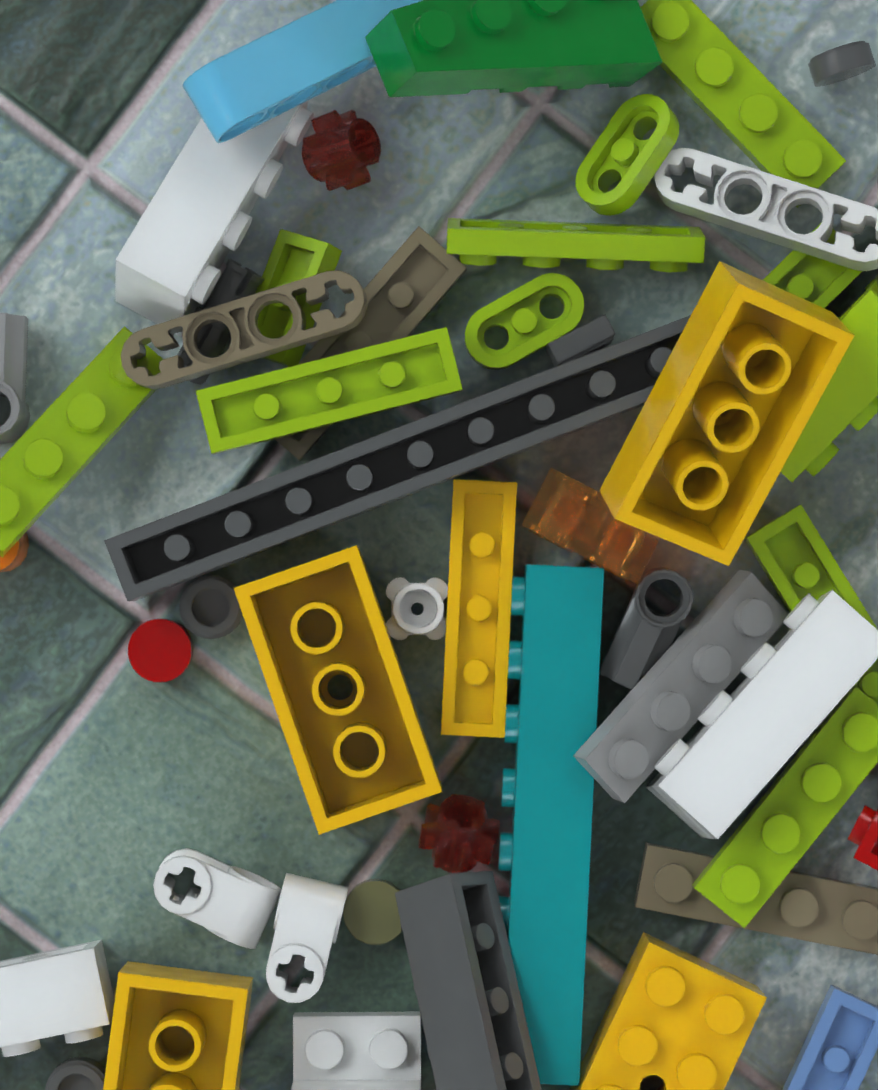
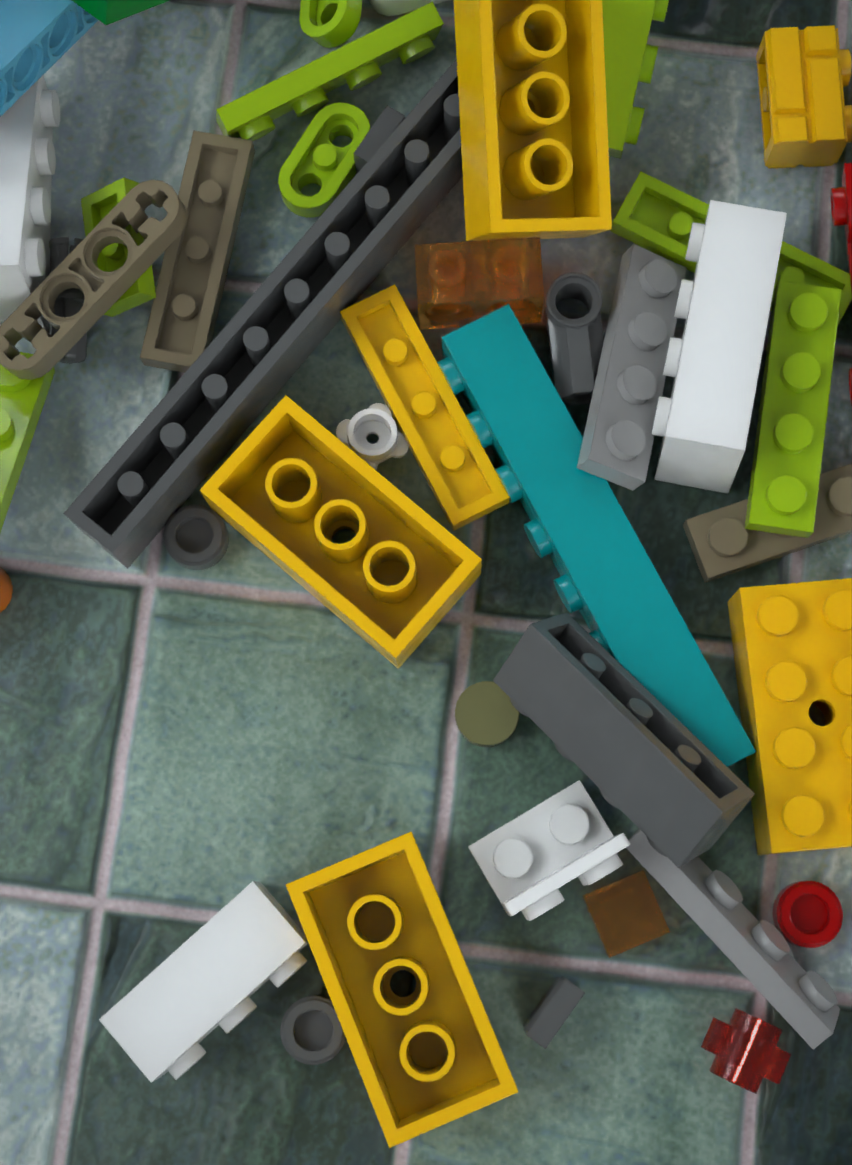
camera: 20 degrees left, 10 degrees down
(160, 650) = (171, 597): red tile -> none
(230, 899) = (352, 776): white piece -> none
(304, 926) = (433, 760): white piece -> none
(329, 390) = (191, 291): lime plate -> none
(341, 150) = (95, 107): clear red gear -> none
(459, 834) = (518, 597): clear red gear -> none

